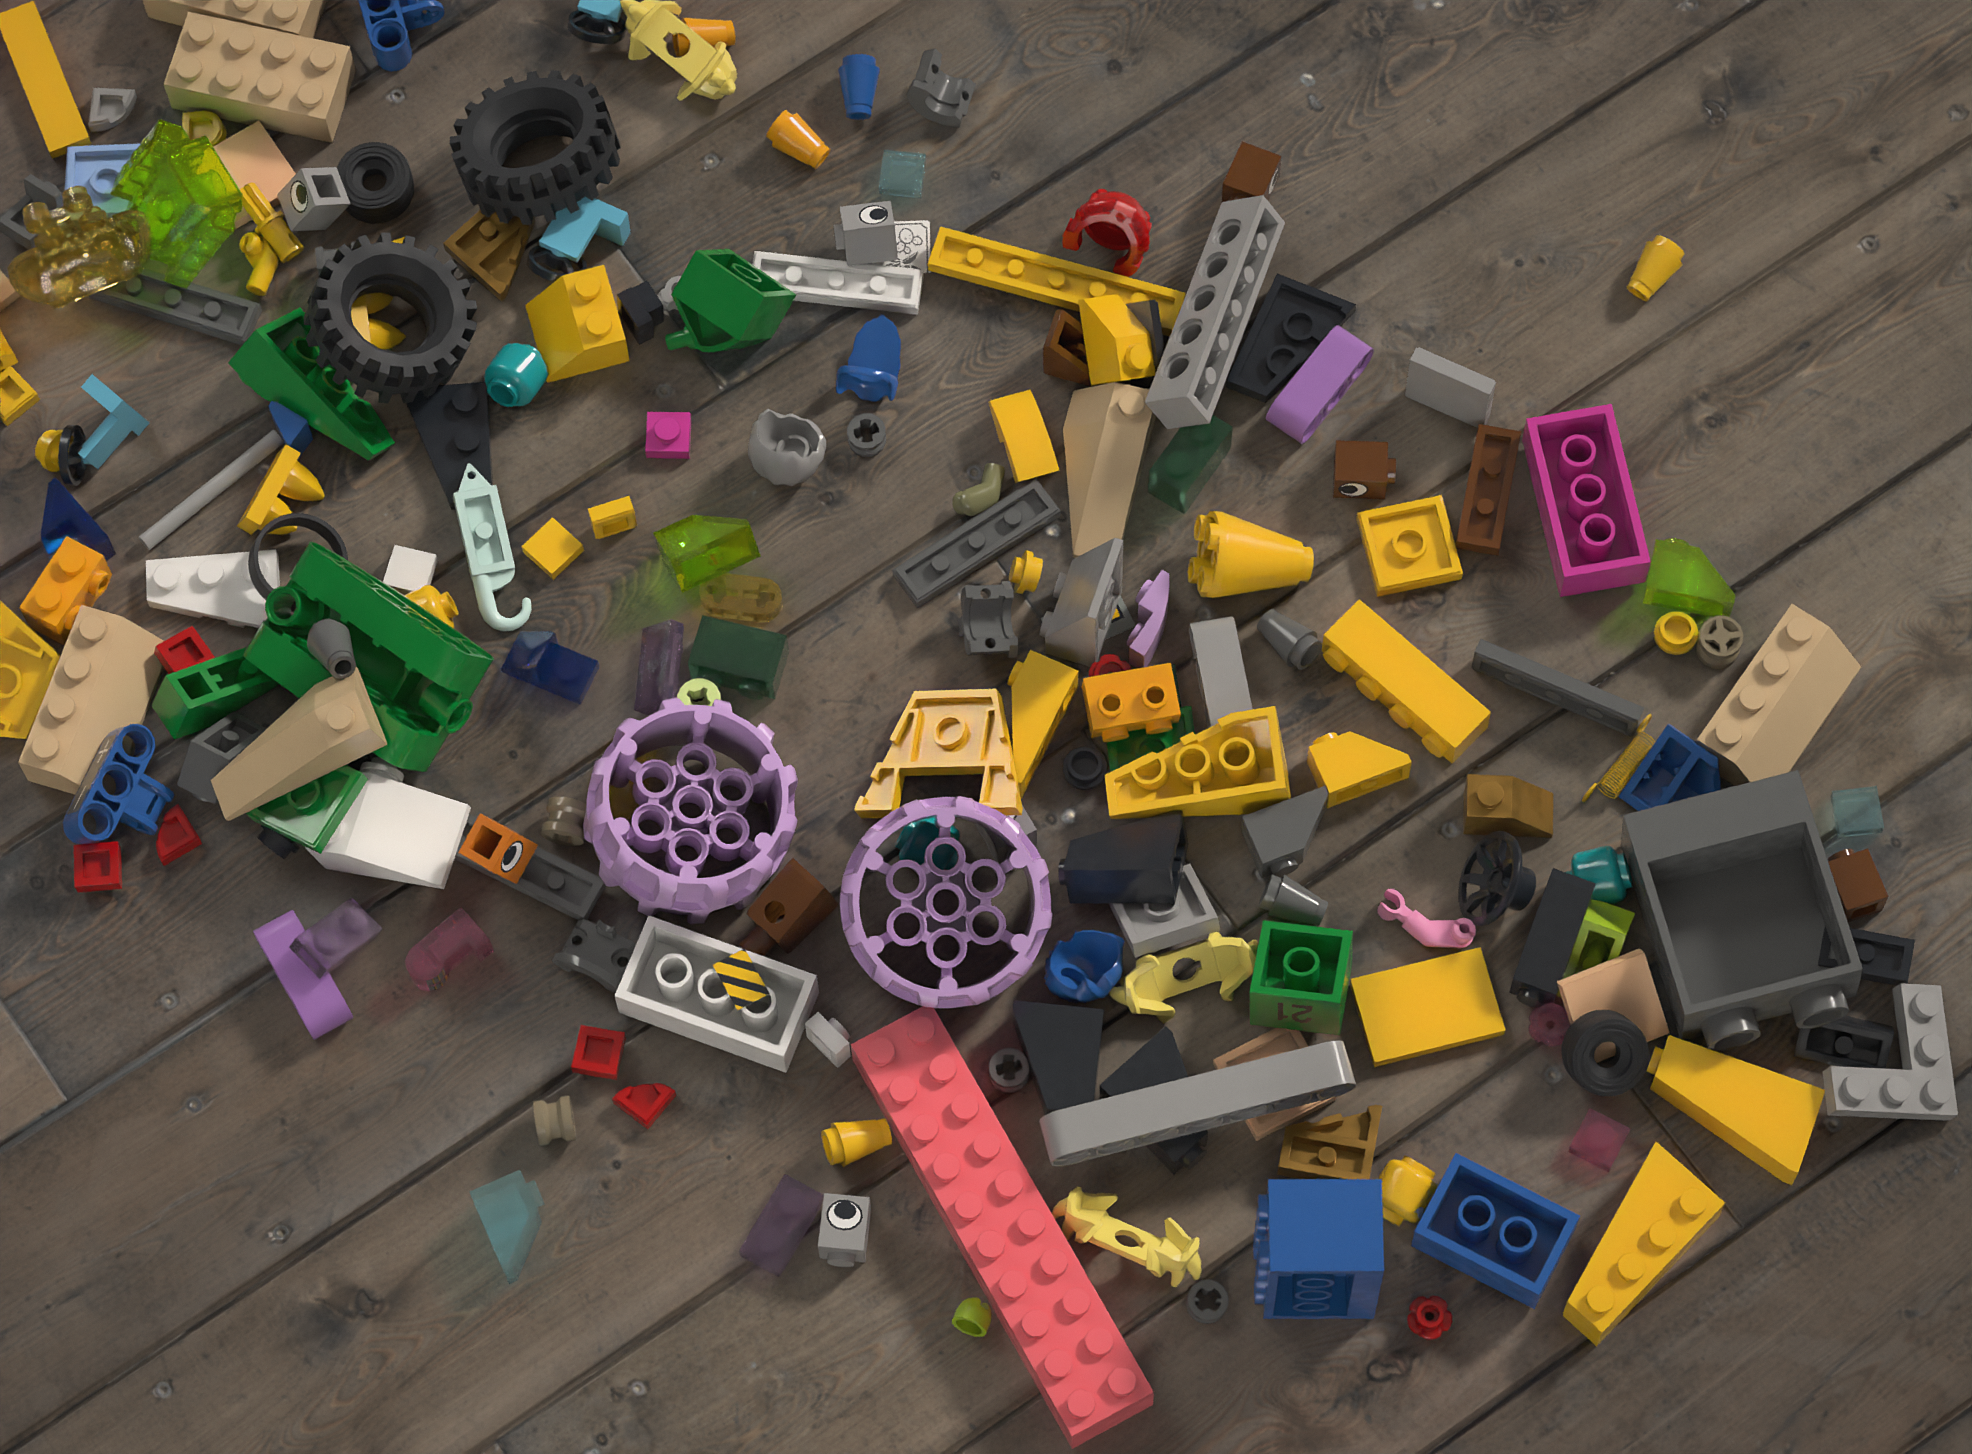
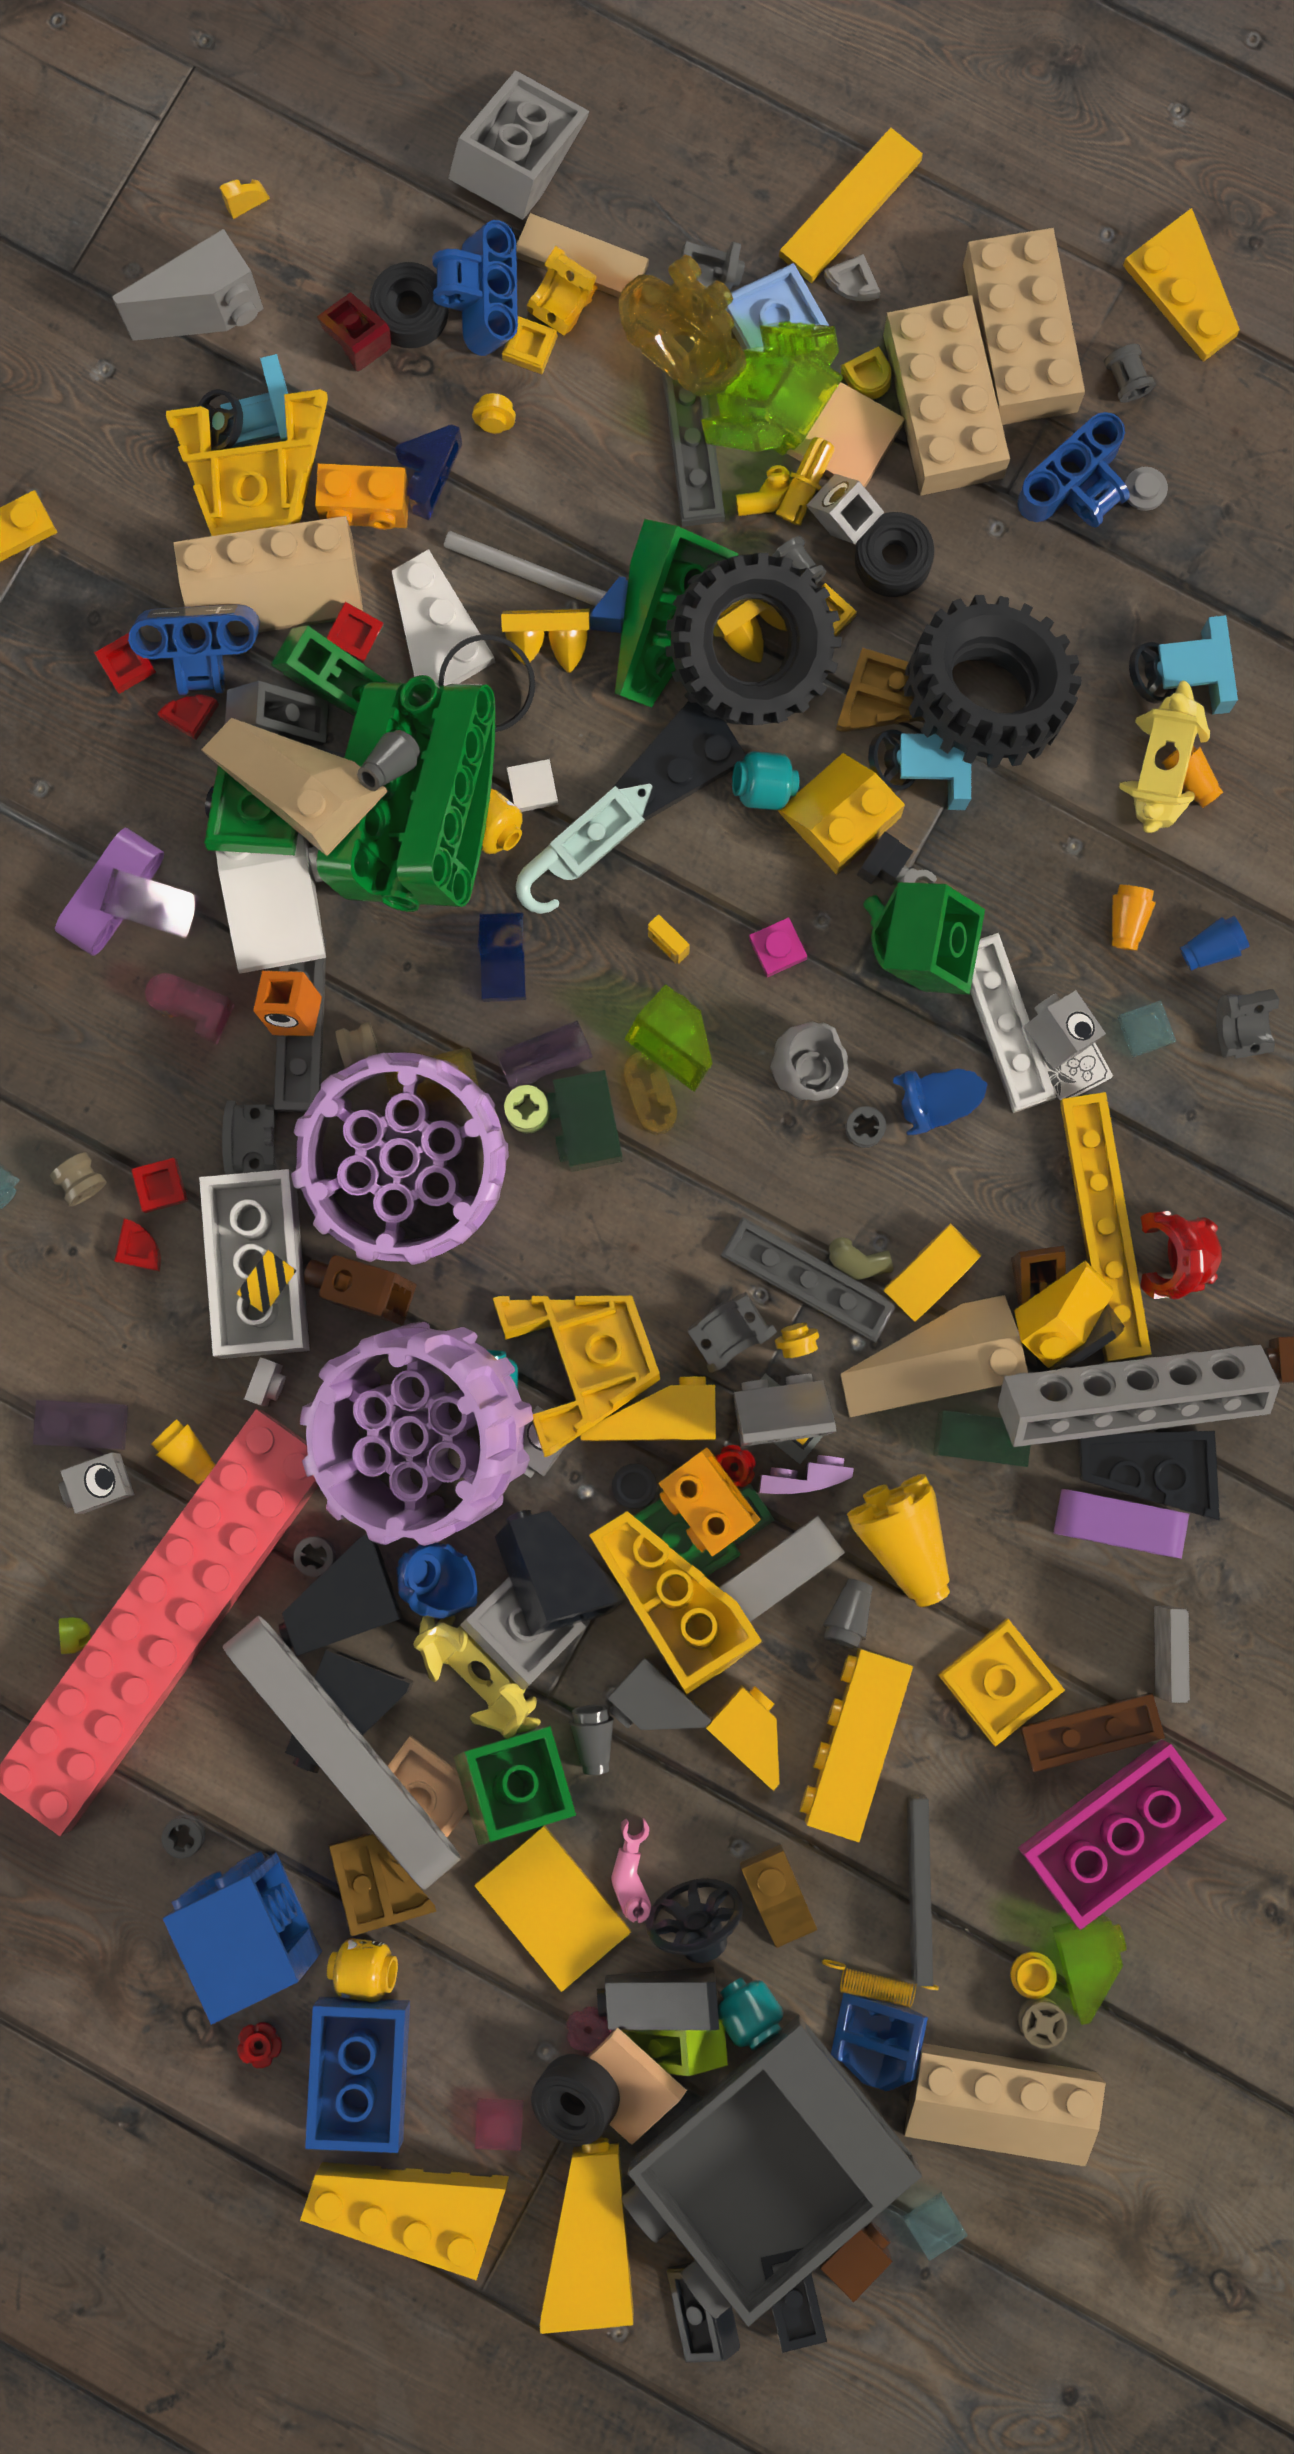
camera: 65 degrees right, 15 degrees up
(103, 440) = (548, 448): medium azure piece -> none
(552, 548) = (616, 900): yellow tile -> none
(1089, 1219) = (202, 1705): light yellow piece -> none
(1362, 469) = (1053, 1605): reddish brown brick -> none
(1923, 1086) = (697, 2409): light grey plate -> none

